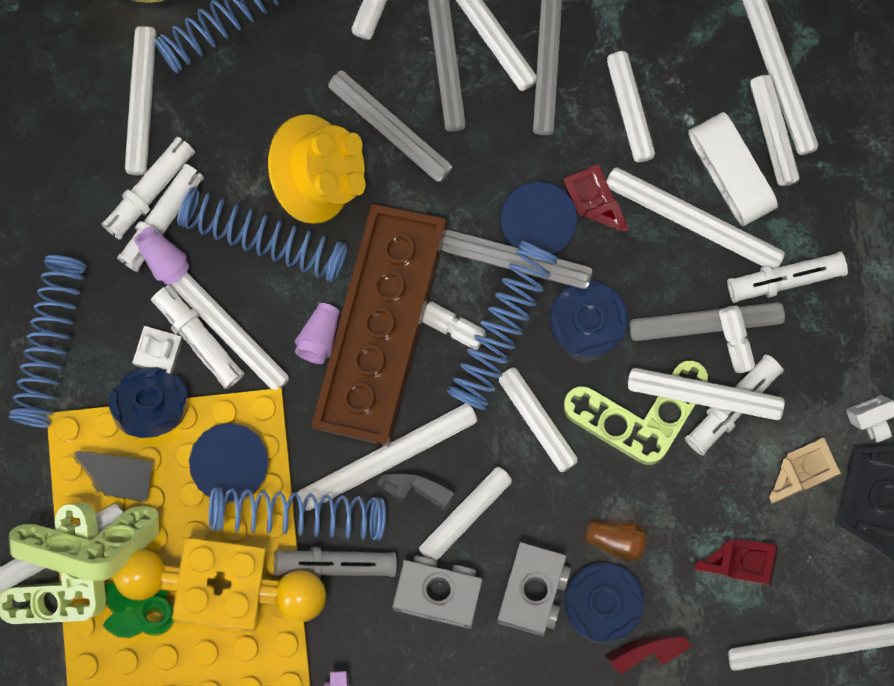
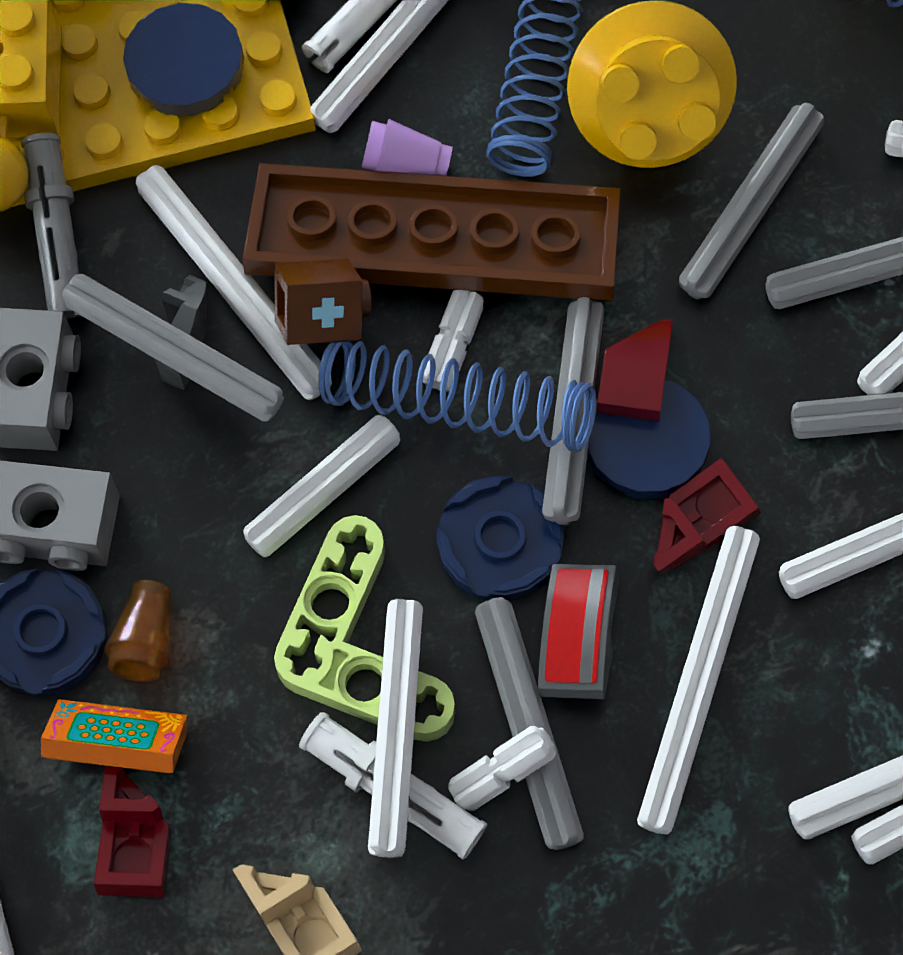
camera: 80 degrees right, 10 degrees down
(218, 505) = (146, 271): medium blue piece -> none
(427, 398) = (320, 301): none -> reddish brown brick
(445, 492) = (173, 347): none -> light grey axle
(465, 514) = (157, 404): white axle -> none
(498, 216) = (636, 374): none -> dark red slope
(658, 282) = (578, 631): none -> slope
(681, 562) = (114, 736): none -> orange tile
(733, 169) = (797, 722): white beam -> none
(830, 265) = (593, 769): white pin -> none

